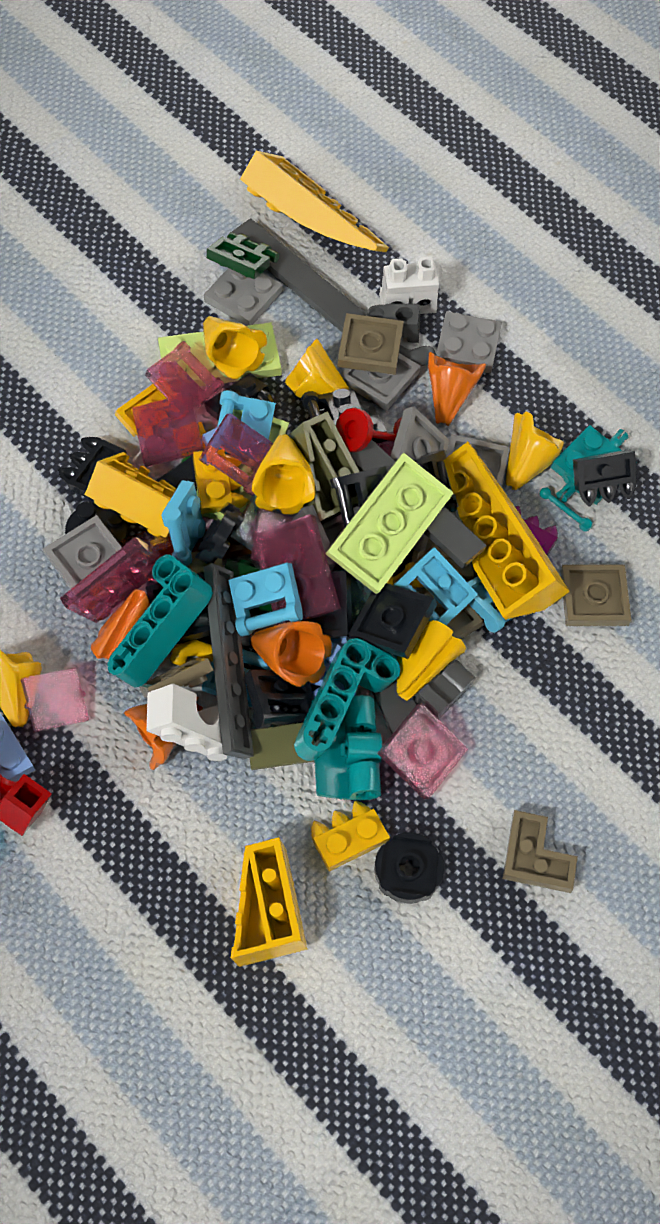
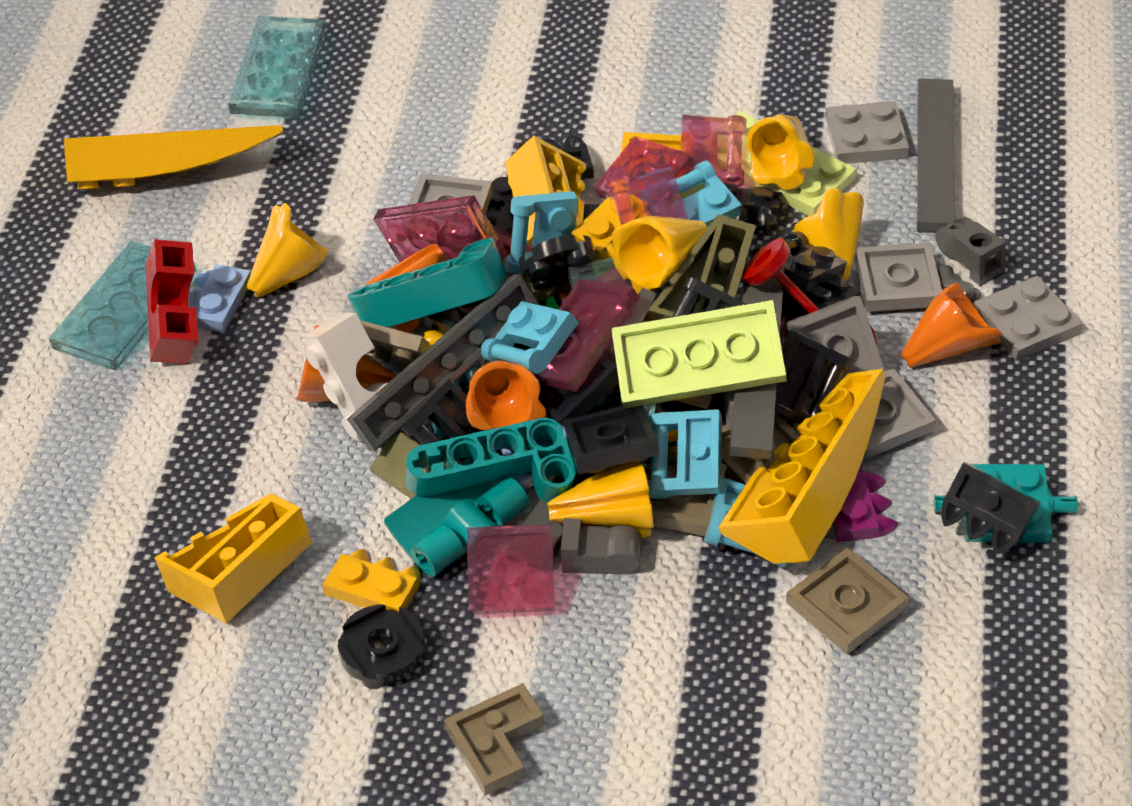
camera: 55 degrees right, 15 degrees down
(54, 699) = (293, 288): clear pink piece -> none
(242, 254) = (894, 95): dark green plate -> none
(304, 201) = (1023, 96): yellow wedge -> none
(370, 343) = (913, 239): dark tan plate -> none
(410, 283) = (1022, 223): white hips -> none
(529, 451) = (951, 437): yellow hat -> none
(584, 523) = (928, 543): teal hinge -> none

